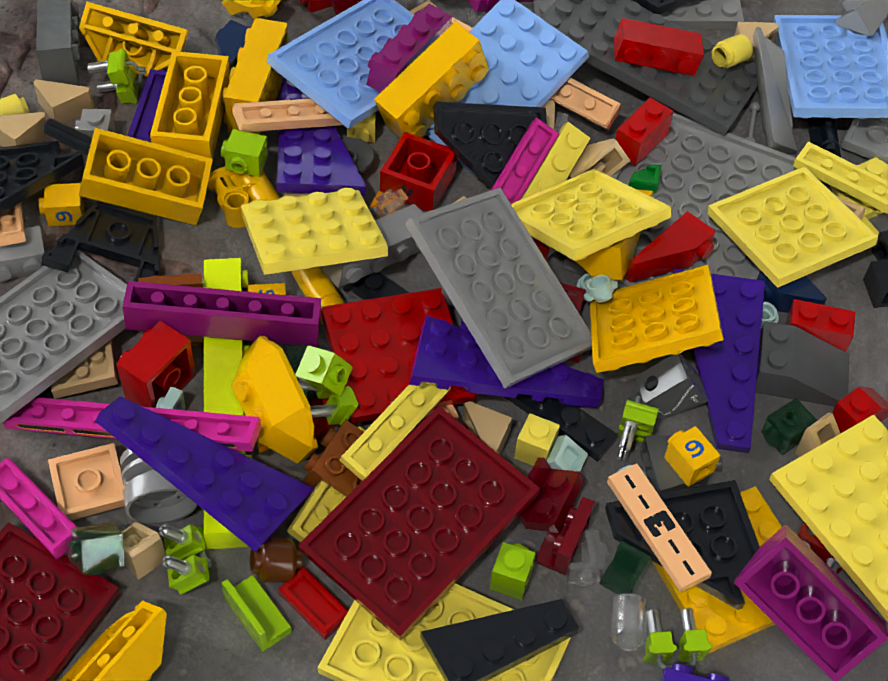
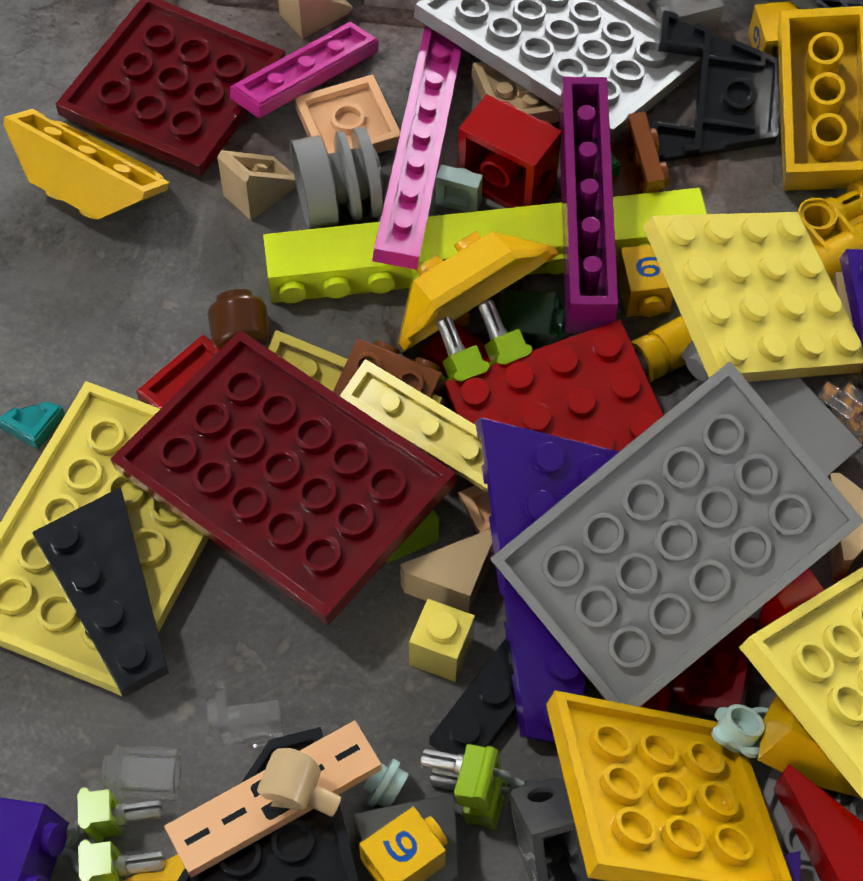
camera: 90 degrees right, 5 degrees up
(96, 548) = (238, 124): brick -> none
(185, 568) = (219, 235): lime piece -> none
(226, 484) = (322, 236): dark purple wing -> none
(256, 612) = (166, 309): lime panel -> none
(324, 370) = (489, 316): lime brick -> none
(512, 570) = (223, 609): lime brick -> none
(555, 498) = (350, 658): dark red bracket -> none
(560, 548) = (268, 677): dark red bracket -> none
(566, 455) = (418, 686): light aqua plate -> none
(625, 570) = (221, 767): clear green panel -> none
(659, 502) = (292, 783): none -> tan piece

